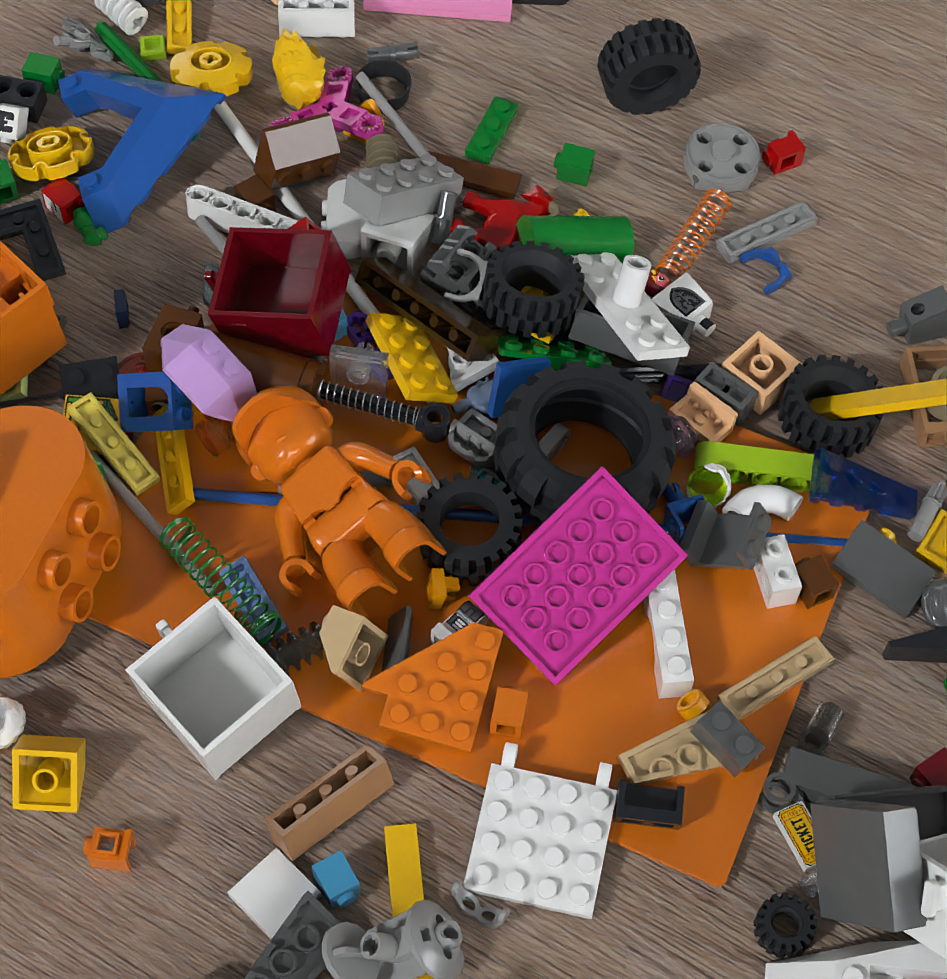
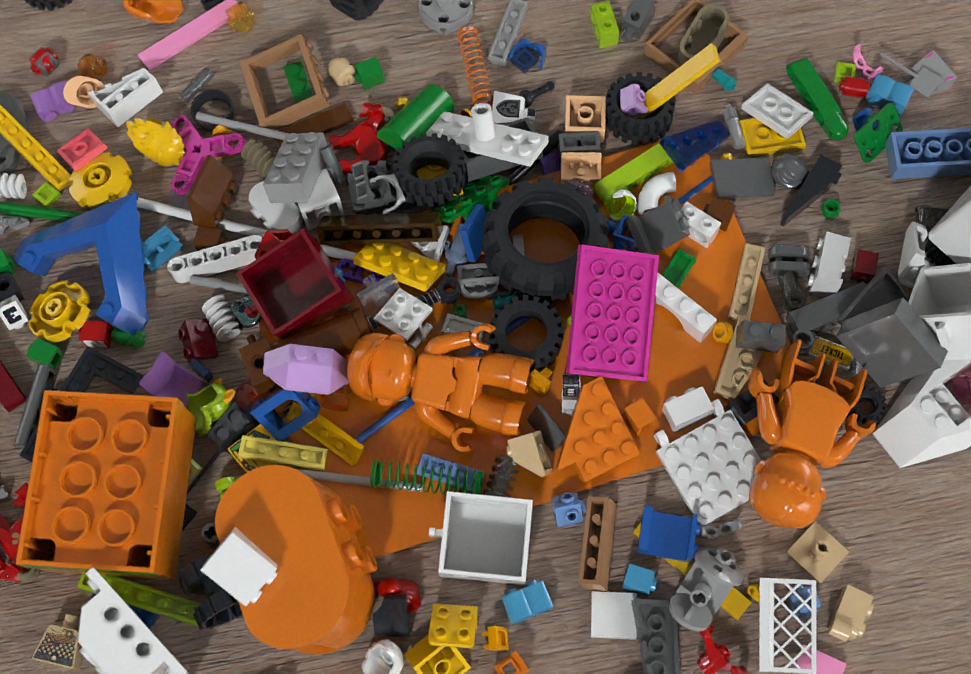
camera: 35 degrees left, 10 degrees up
(49, 687) = (392, 616): none -> black slope
(79, 292) = (170, 379): none -> medium lavender piece
(83, 676) = (400, 586): none -> red hair
(95, 341) = (209, 405): none -> lime hair
(97, 747) = (453, 625): none -> yellow bracket
(130, 805) = (497, 639): none -> light orange tile
(150, 279) = (197, 340): none -> dark red bracket
(188, 276) = (220, 318): none -> white piece
(198, 797) = (527, 602): none -> dark azure brick
(202, 168) = (160, 248): none -> dark azure hinge
(224, 30) = (81, 149): none -> coral tile
(335, 739) = (568, 509): none -> medium blue brick
(361, 405) = (404, 316): none -> white plate
(412, 858) = (668, 535): none -> blue panel
(430, 455) = (460, 310): none -> green piece
(469, 144) = (295, 111): none -> medium nougat window
(487, 21) = (234, 14): none -> clear yellow brick
(546, 141) = (341, 71): none -> tan head
(570, 749) = (687, 408): none -> white piece
(594, 913) = (802, 436): none -> orange piece
(709, 603) = (679, 268): none -> green tile
(722, 309) = (530, 95): none -> black piece
(755, 272) = (524, 60): none -> dark blue tile
(832, 385) = (633, 100): none -> lavender brick
(852, 694) = (788, 259): none -> dark grey brick
(879, 298) = (604, 24): none -> lime brick
(894, 737) = (829, 265): none -> white wedge

